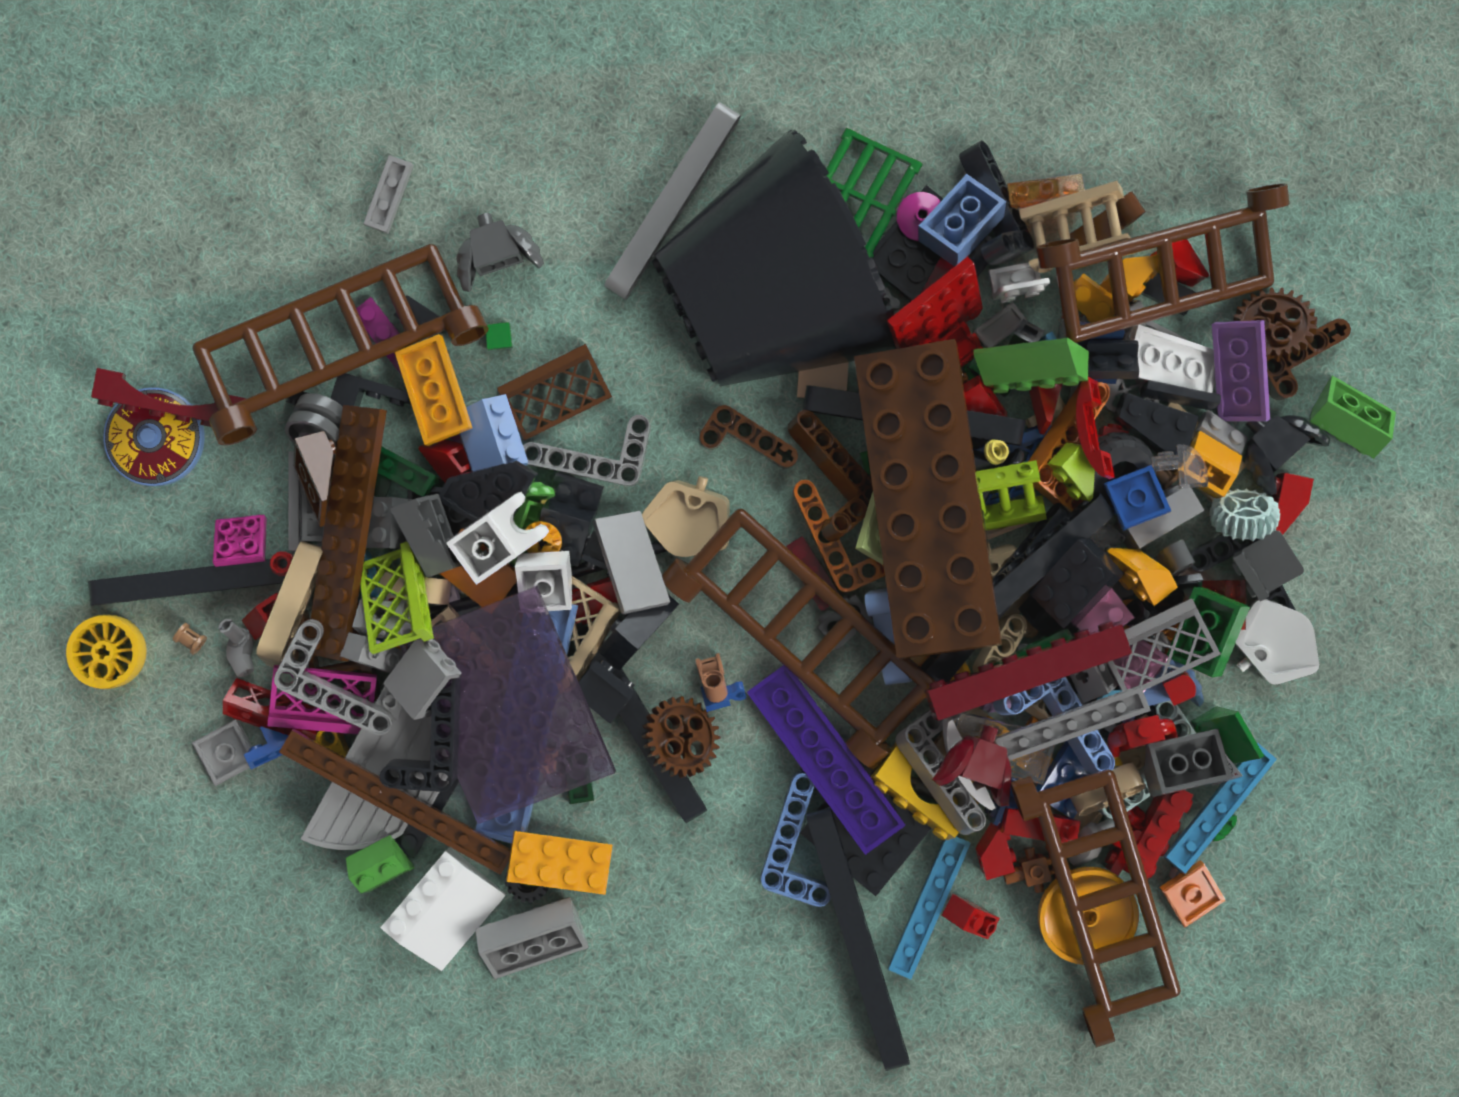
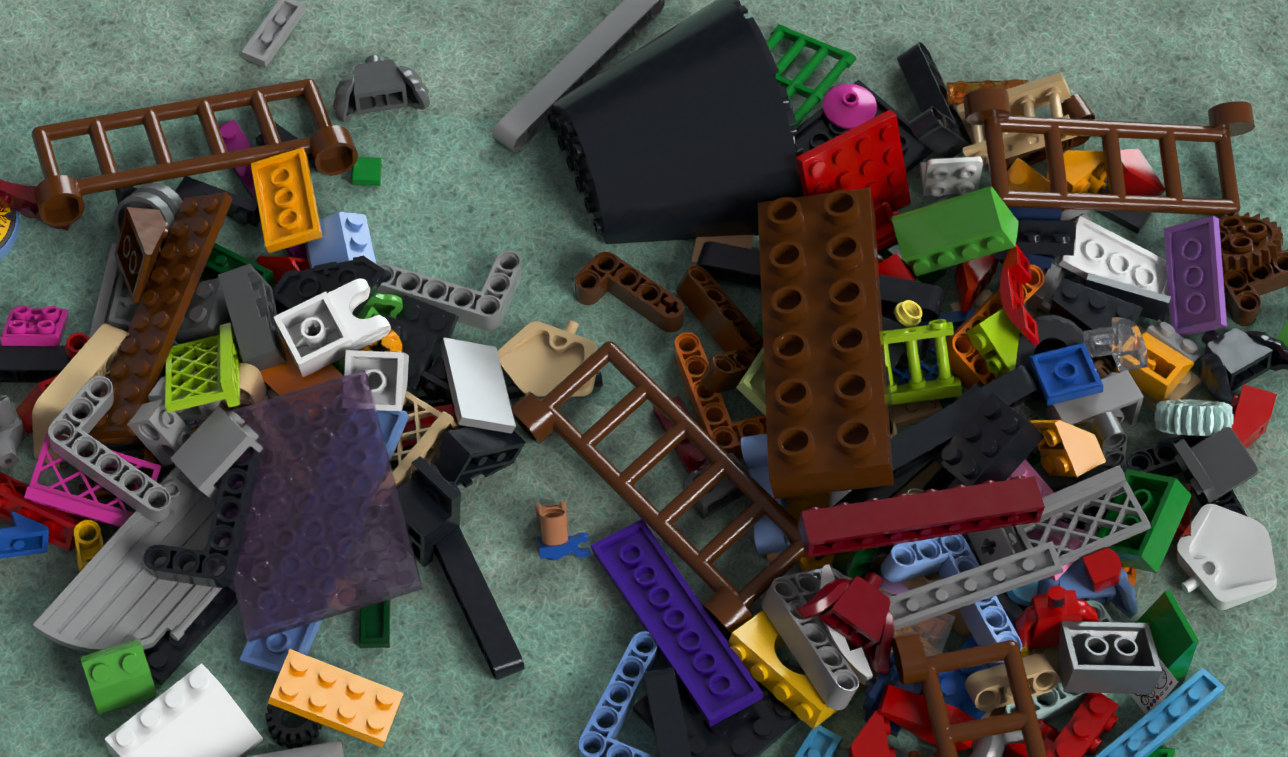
camera: 10 degrees right, 30 degrees down
(396, 801) = (157, 598): reddish brown plate -> none
(545, 372) = (417, 204): reddish brown fence -> none
(660, 735) = (486, 572): reddish brown gear -> none
(961, 220) = (895, 89): medium blue brick -> none

